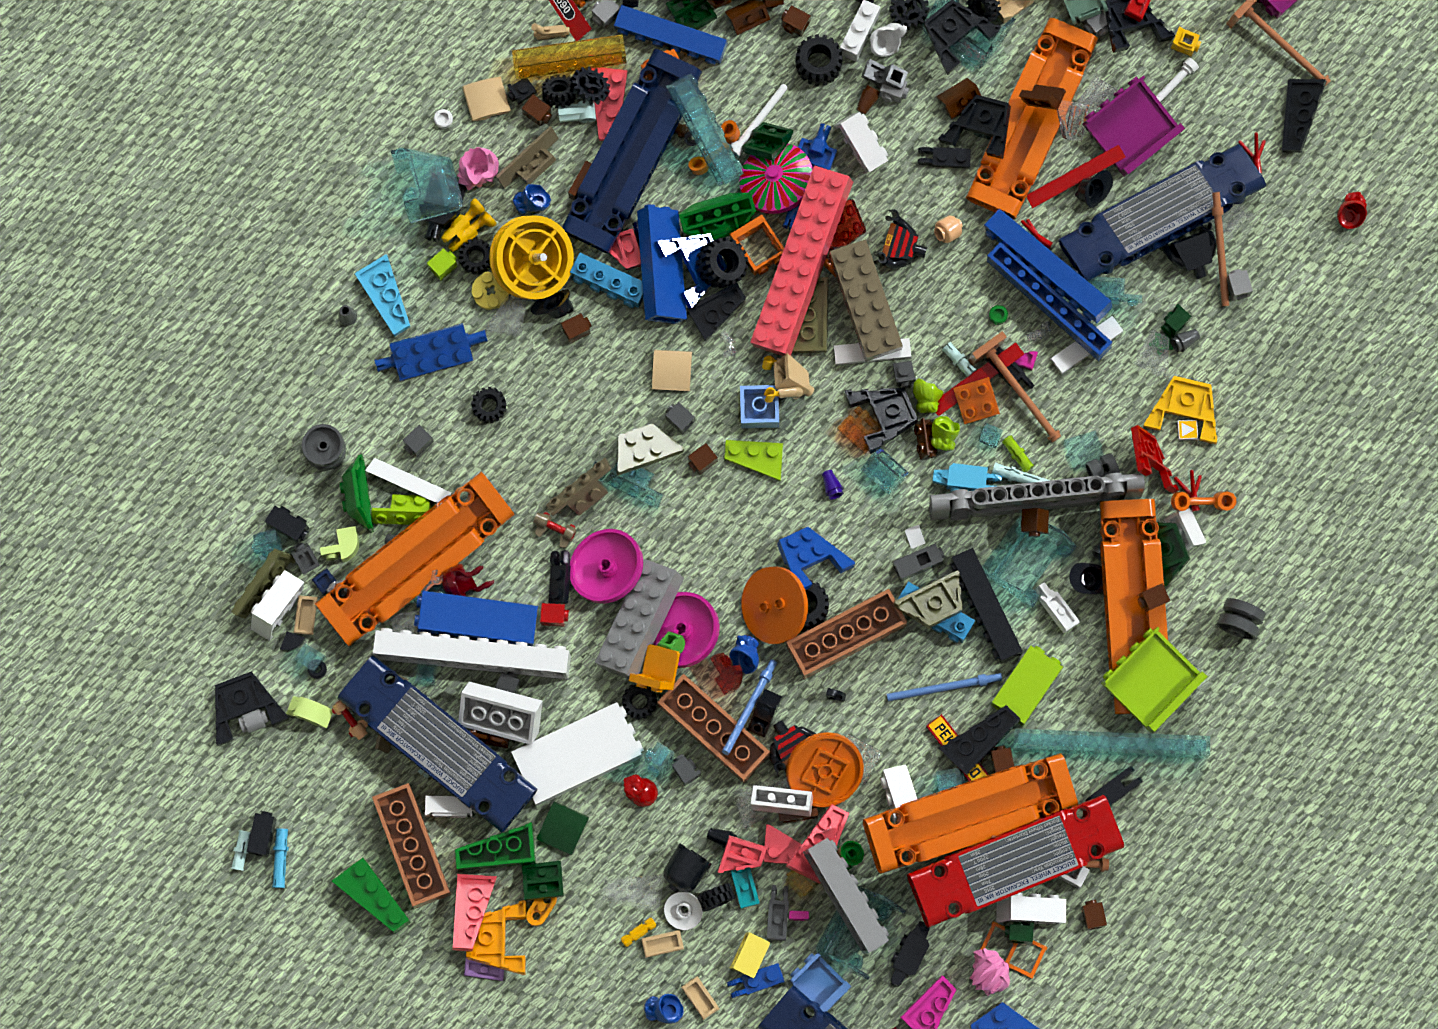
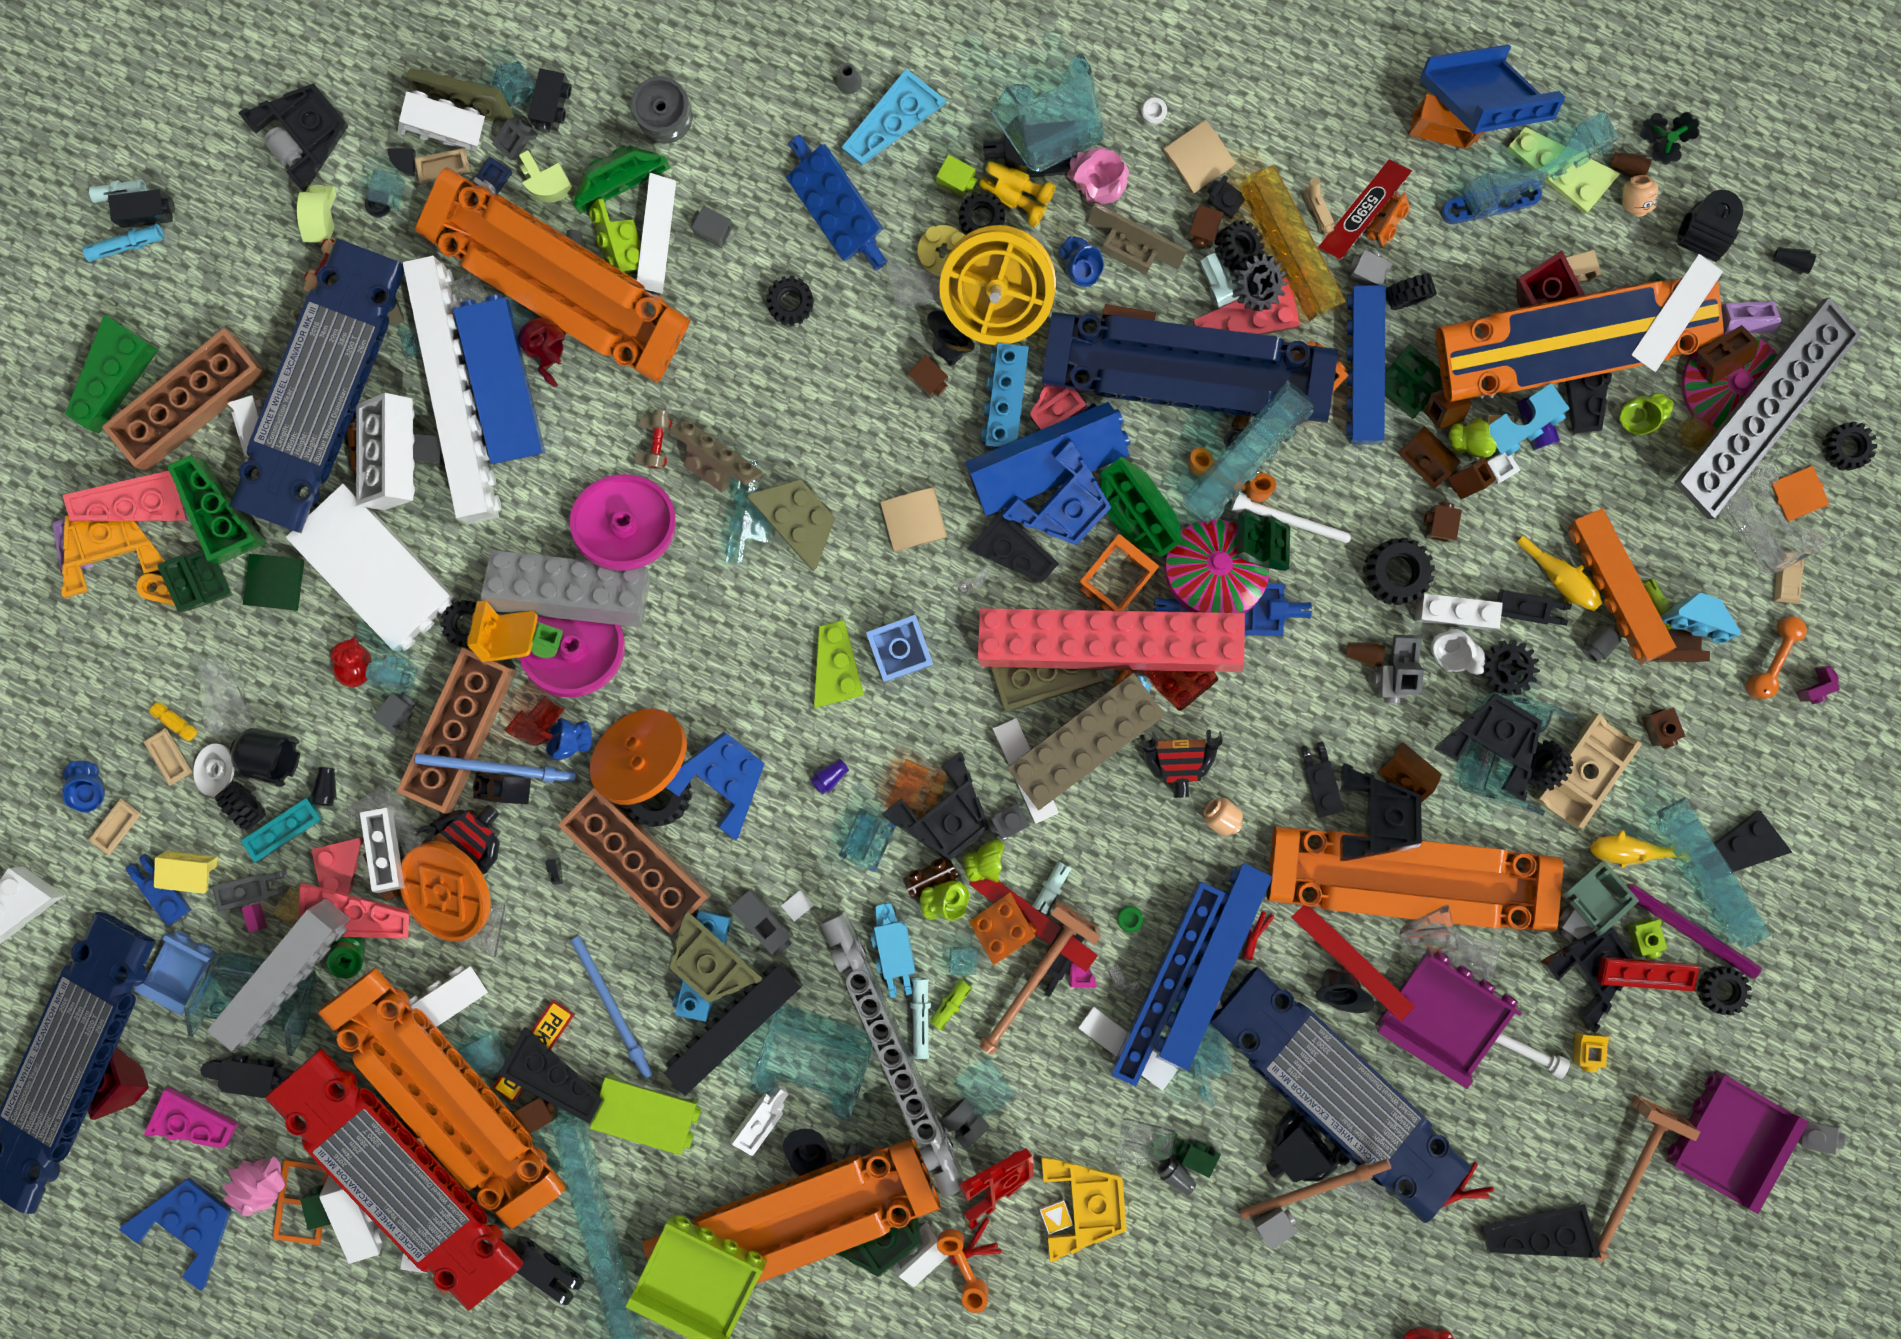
camera: 65 degrees right, 10 degrees up
(434, 581) = (530, 309): clear hand -> none
(554, 614) = (541, 477): red brick -> none
(559, 577) = (592, 468): black hinge -> none
(679, 417) = (853, 550): dark grey brick -> none
(702, 459) = (807, 598): reddish brown brick -> none
(735, 262) = (1083, 553): black tyre -> none
(741, 855) = (303, 820): coral wing -> none
(789, 376) = (947, 676): tan torso -> none
(862, 141) = (1305, 665): white wedge -> none
(1035, 521) = (858, 1059): reddish brown brick -> none
(1043, 96) = (1446, 888): reddish brown panel -> none
(1093, 915) = (373, 1294): reddish brown brick -> none
(1153, 597) = (803, 1251): reddish brown brick -> none

